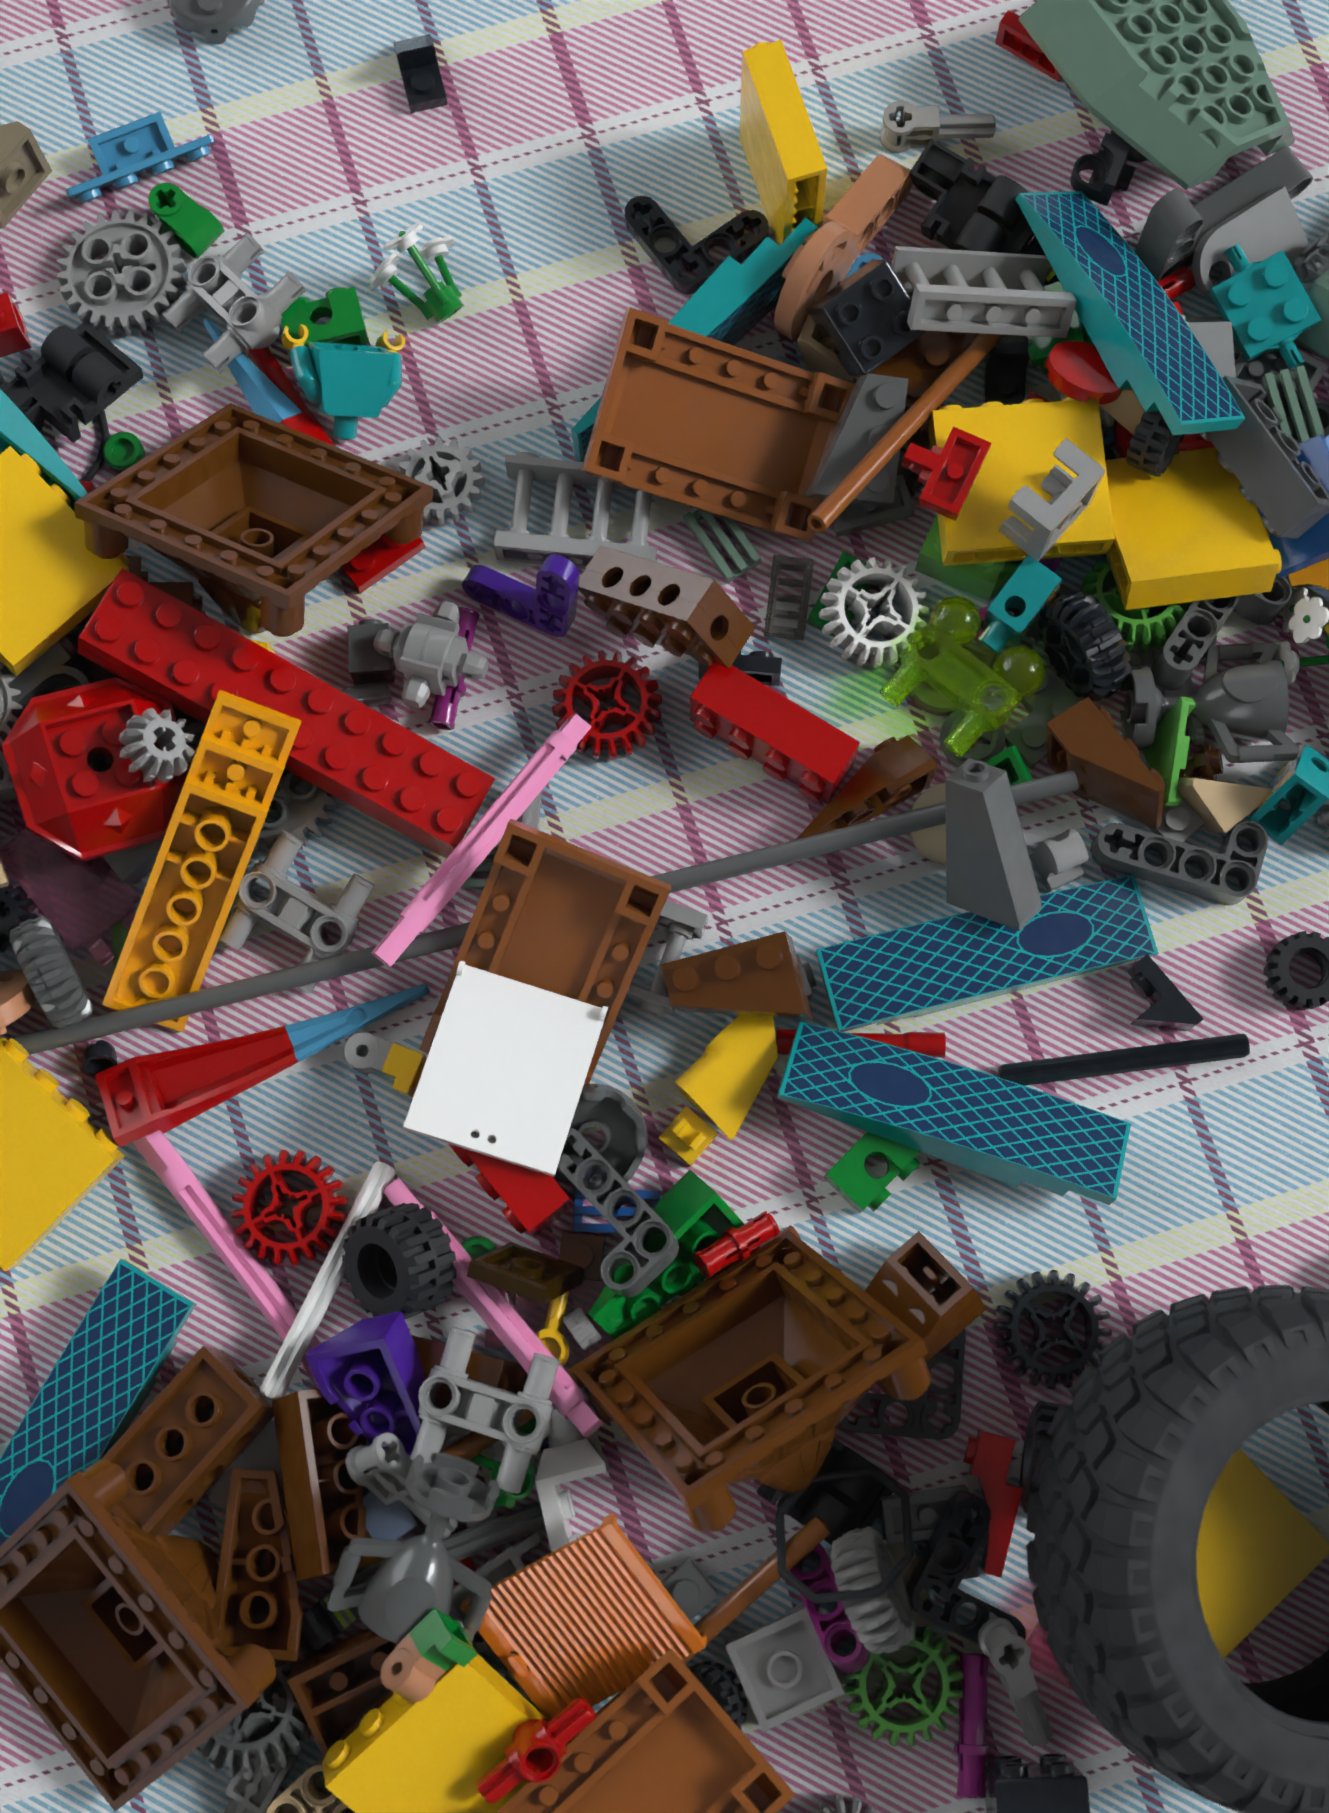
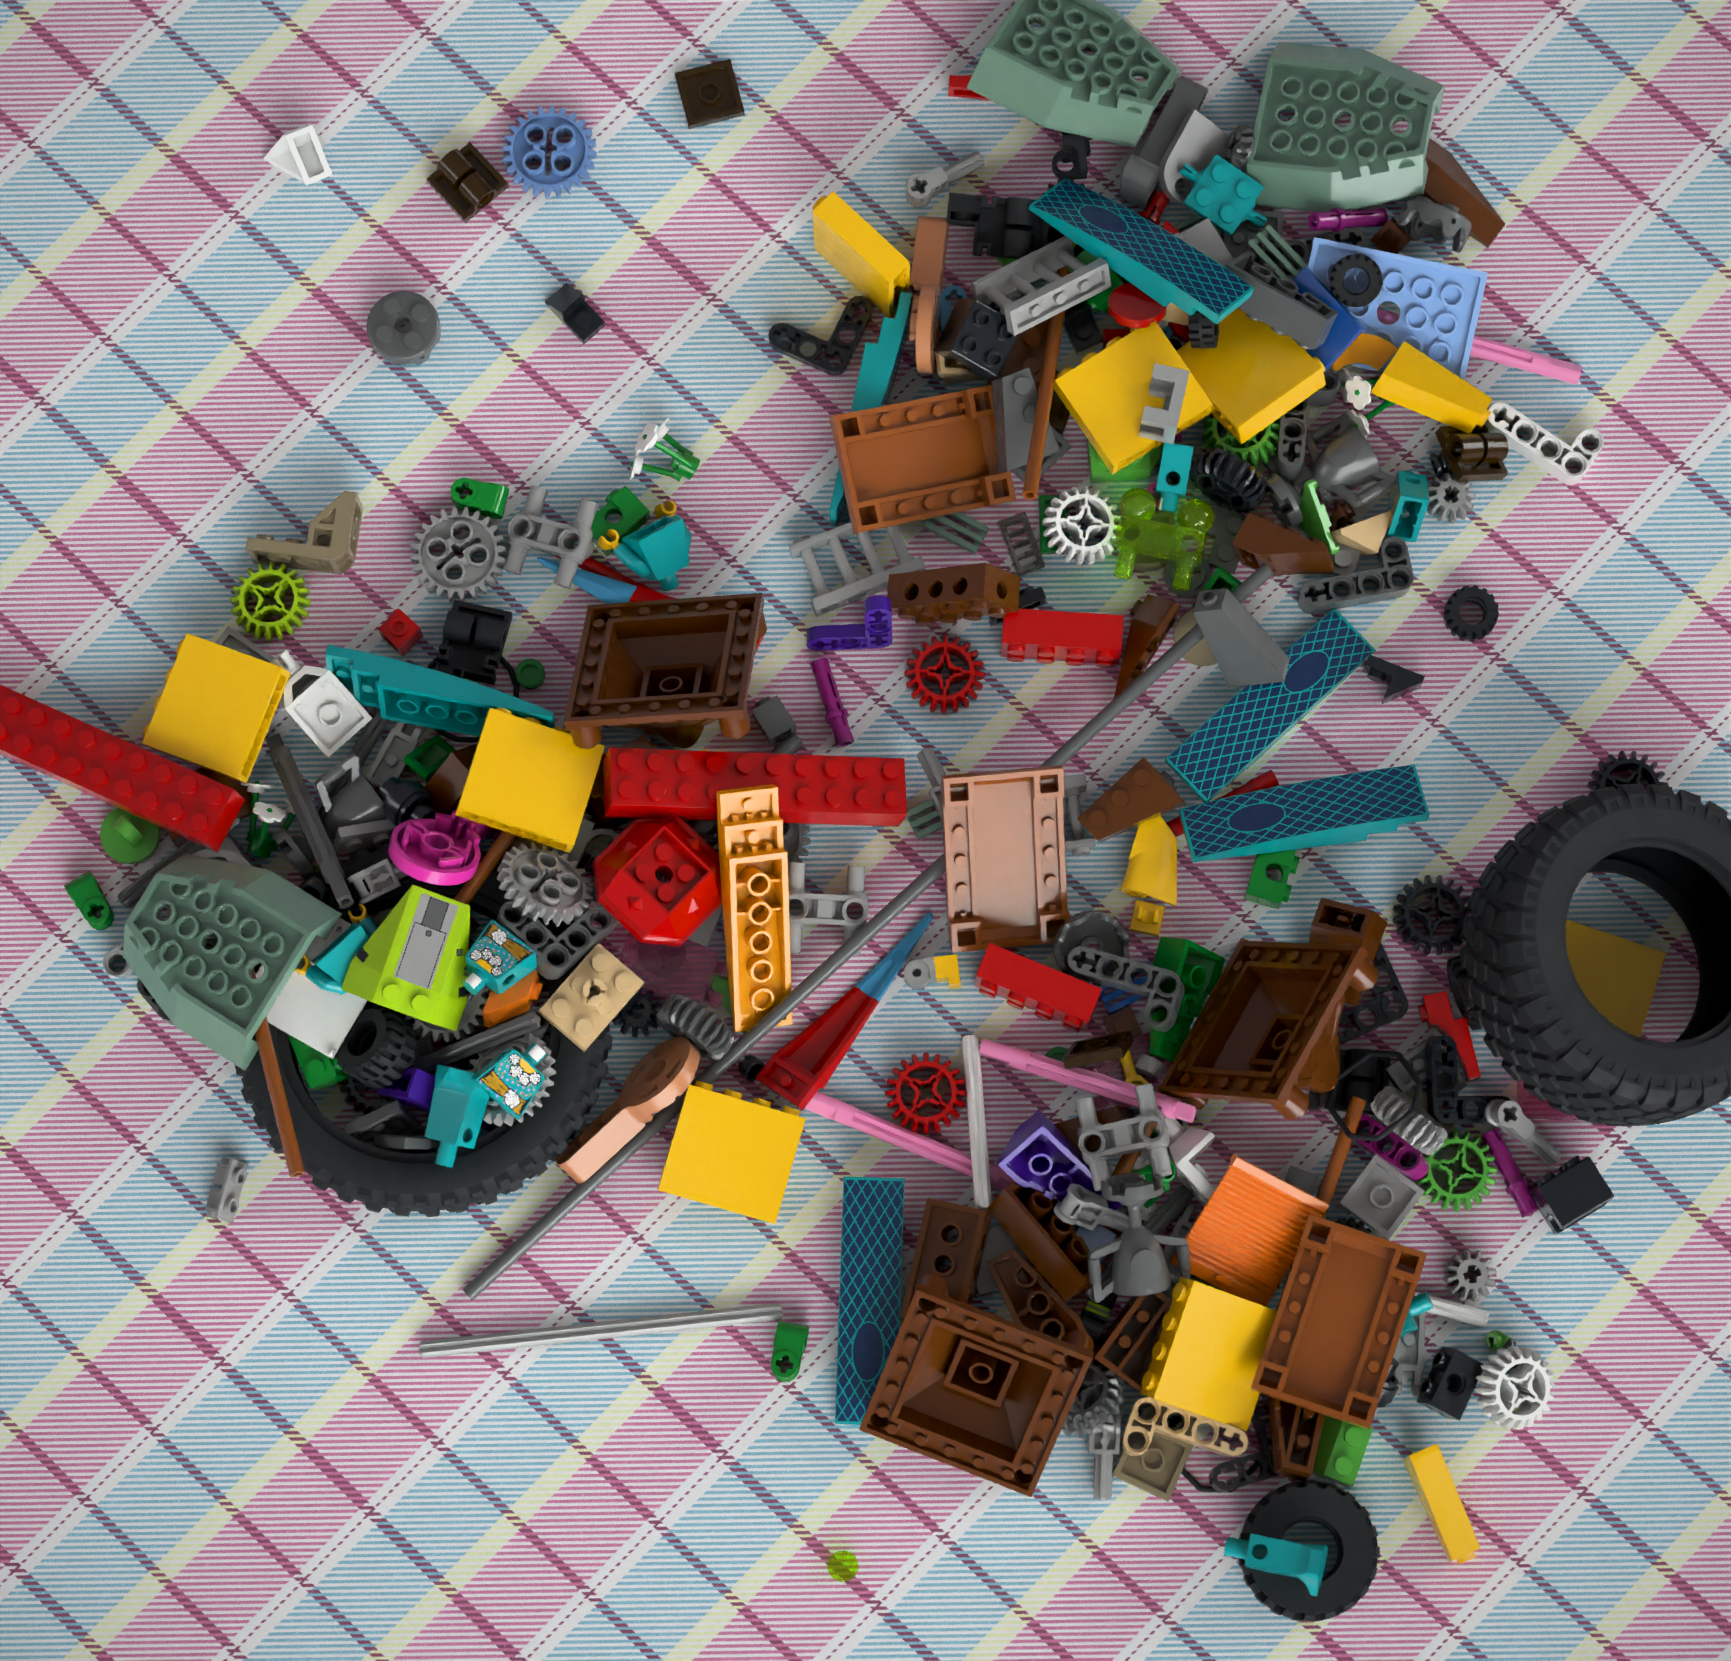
camera: 30 degrees left, 0 degrees up
(134, 150) = (418, 467): dark azure bracket -> none
(145, 756) = (699, 845): light grey gear -> none
(399, 1261) = (1027, 1069): black tyre -> none
(426, 1656) = (1171, 1291): leg -> none
(431, 654) = (819, 701): light grey piece -> none
(454, 474) = (759, 574): light grey gear -> none
(481, 839) = (919, 800): bright pink piece -> none
(506, 1068) = (1018, 931): white door -> none
(540, 1765) = (1274, 1315): red axle -> none
(736, 1244) = (1215, 965): red pin -> none
(947, 471) = (1087, 415): red hinge -> none
(1060, 859) = (1284, 623): light grey leg -> none
(1126, 1060) = (1391, 727): black axle -> none

